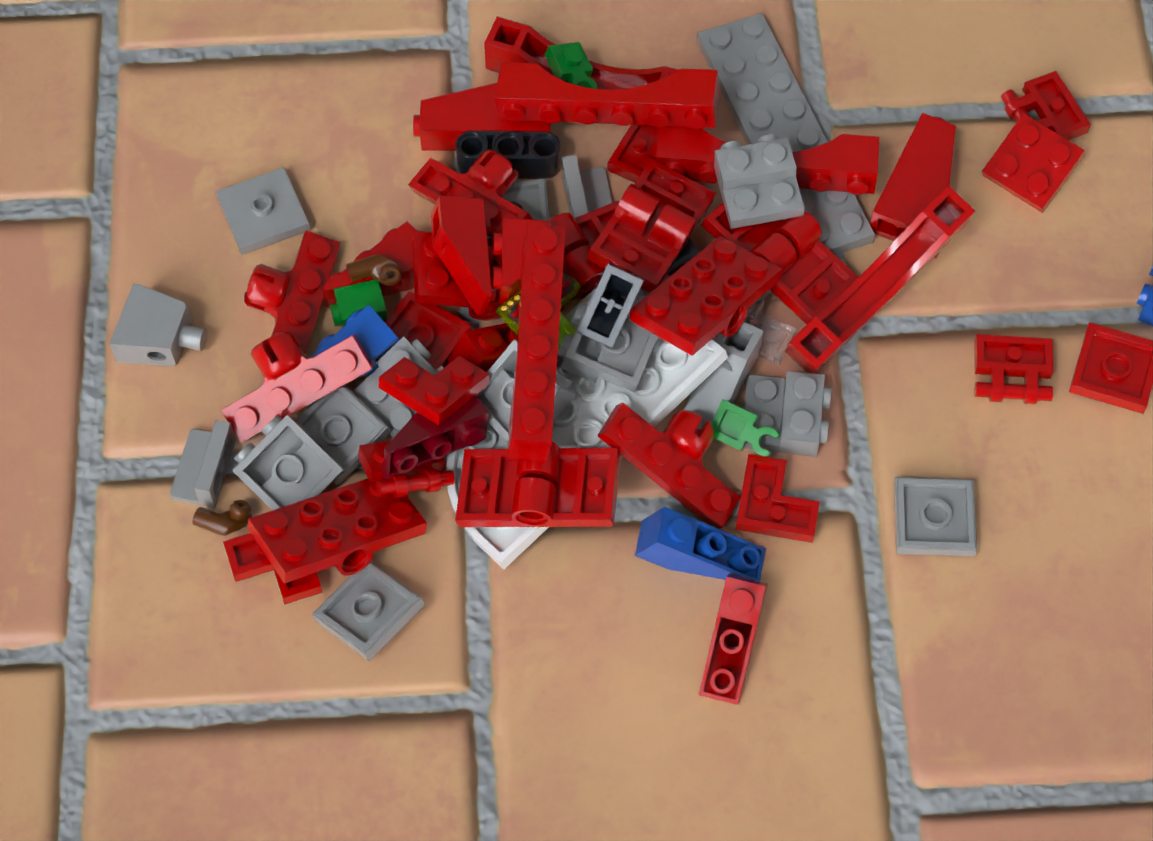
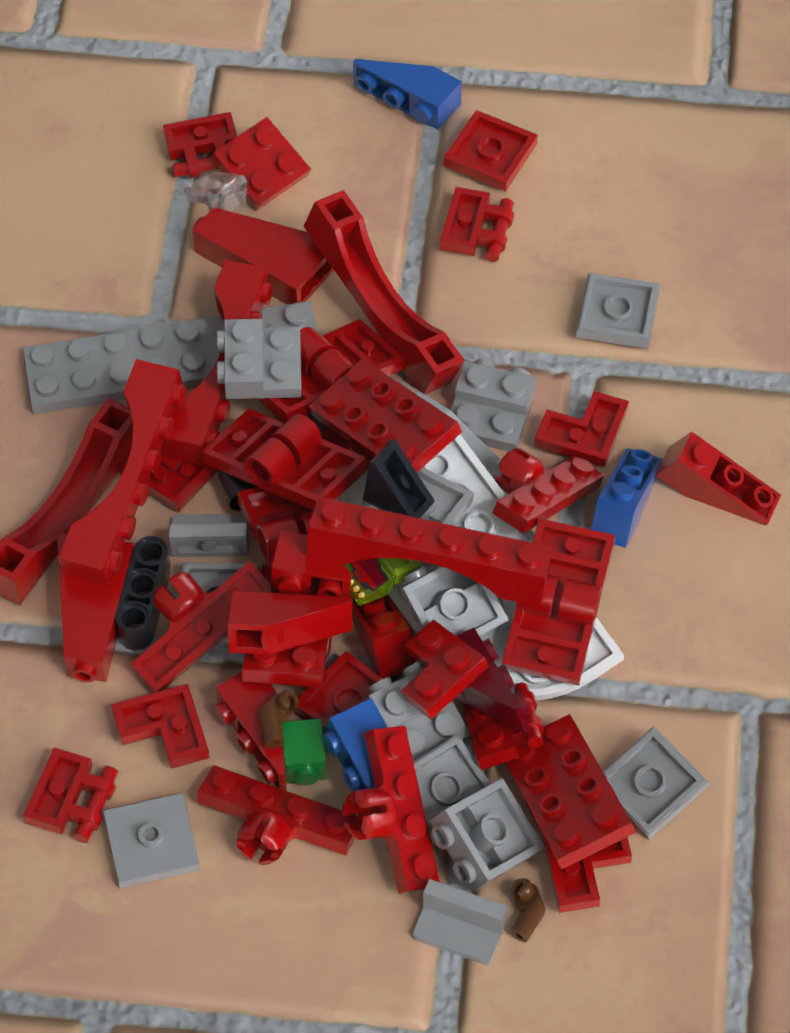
camera: 80 degrees left, 5 degrees down
(154, 329) = (286, 955): light grey torso -> none
(297, 131) = (59, 790): none -> red plate
(384, 198) = (164, 714): none -> red plate
(570, 64) = (58, 512): green plate -> none
(737, 427) = (511, 433): plate -> none
(979, 132) = (219, 191): none -> clear slope

